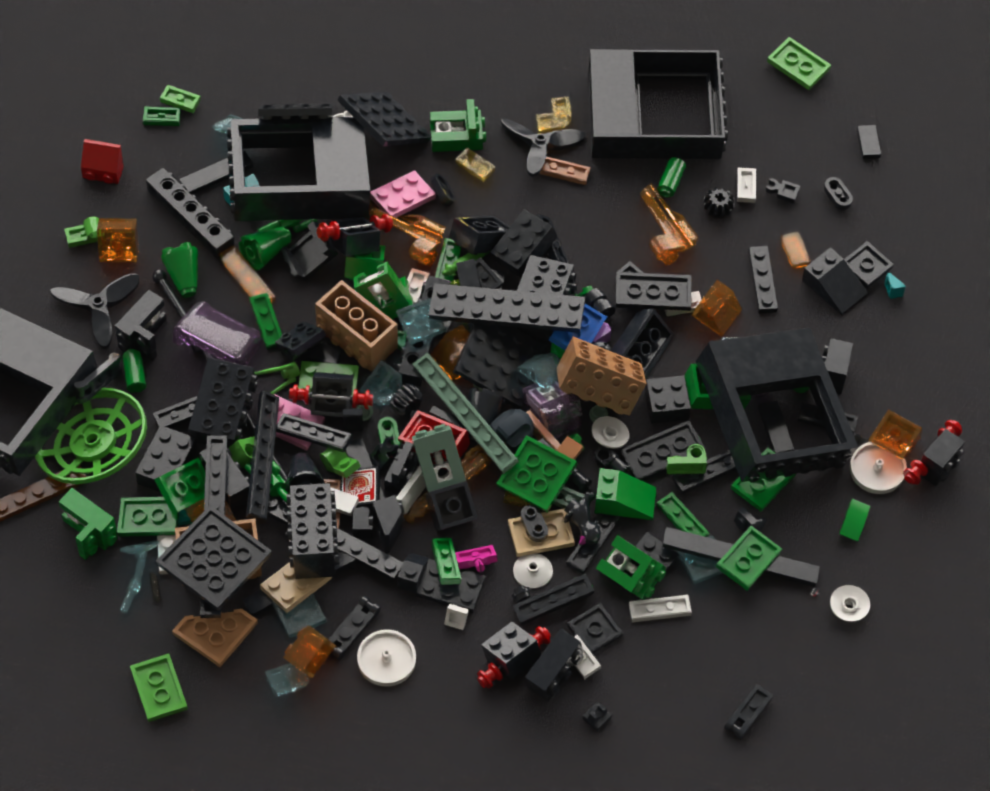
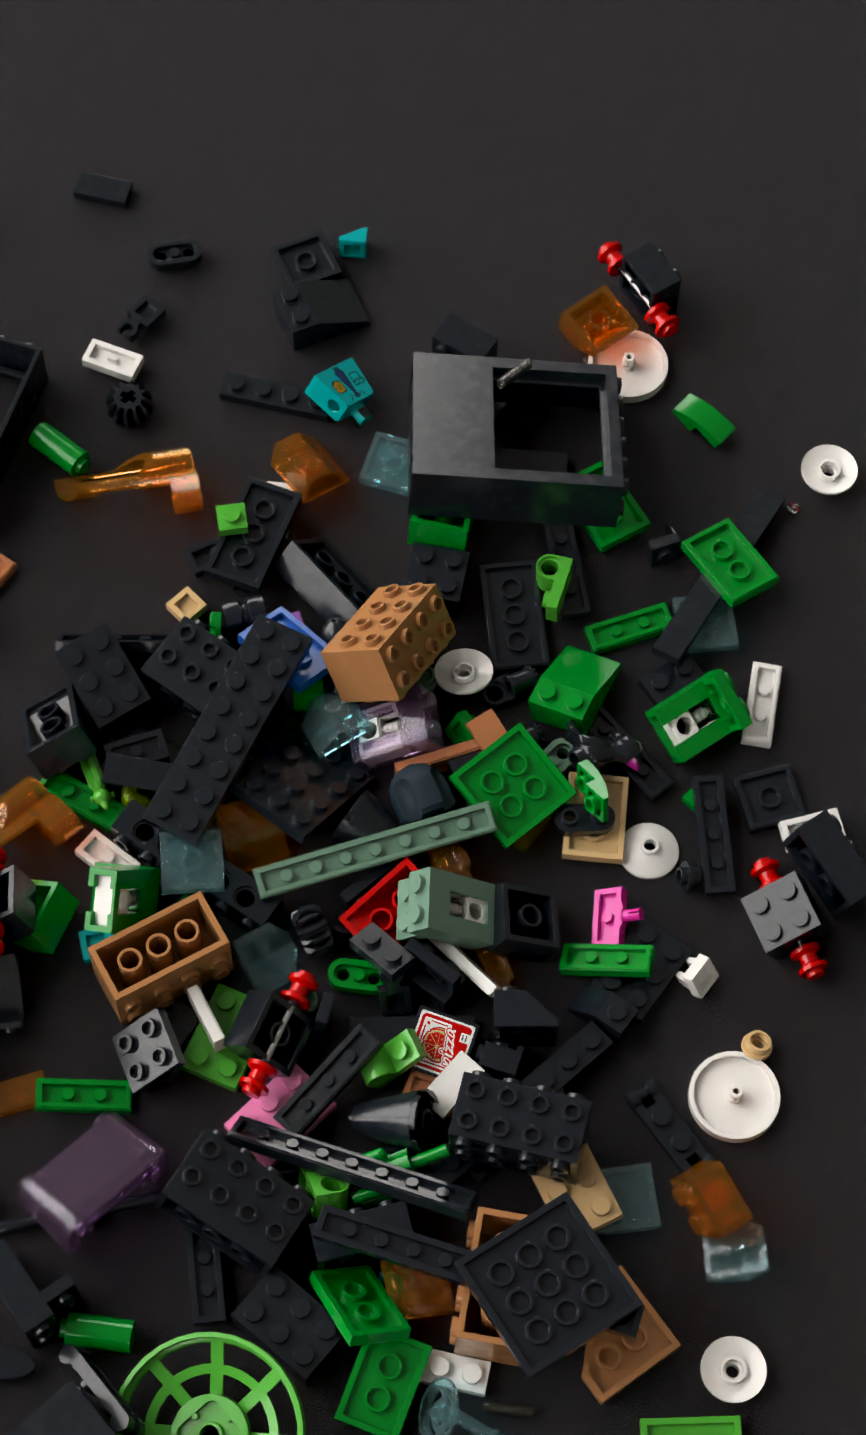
camera: 70 degrees left, 5 degrees up
(212, 688) = (736, 1353): none -> white dish
(288, 371) = (190, 1090): bright green plant -> none
(331, 359) = (206, 1018): none -> white tile
(400, 433) = (382, 952): none -> black plate
(427, 657) = (759, 1039): none -> tan plate
(549, 517) = (595, 789): none -> green slope
(593, 275) = (186, 604): none -> tan plate
(655, 274) = (232, 519): none -> bright green plate
(777, 309) = (342, 392): none -> teal torso
(795, 250) = (244, 340): clear orange tile -> none
(818, 386) = (514, 373): none -> clear smoke piece

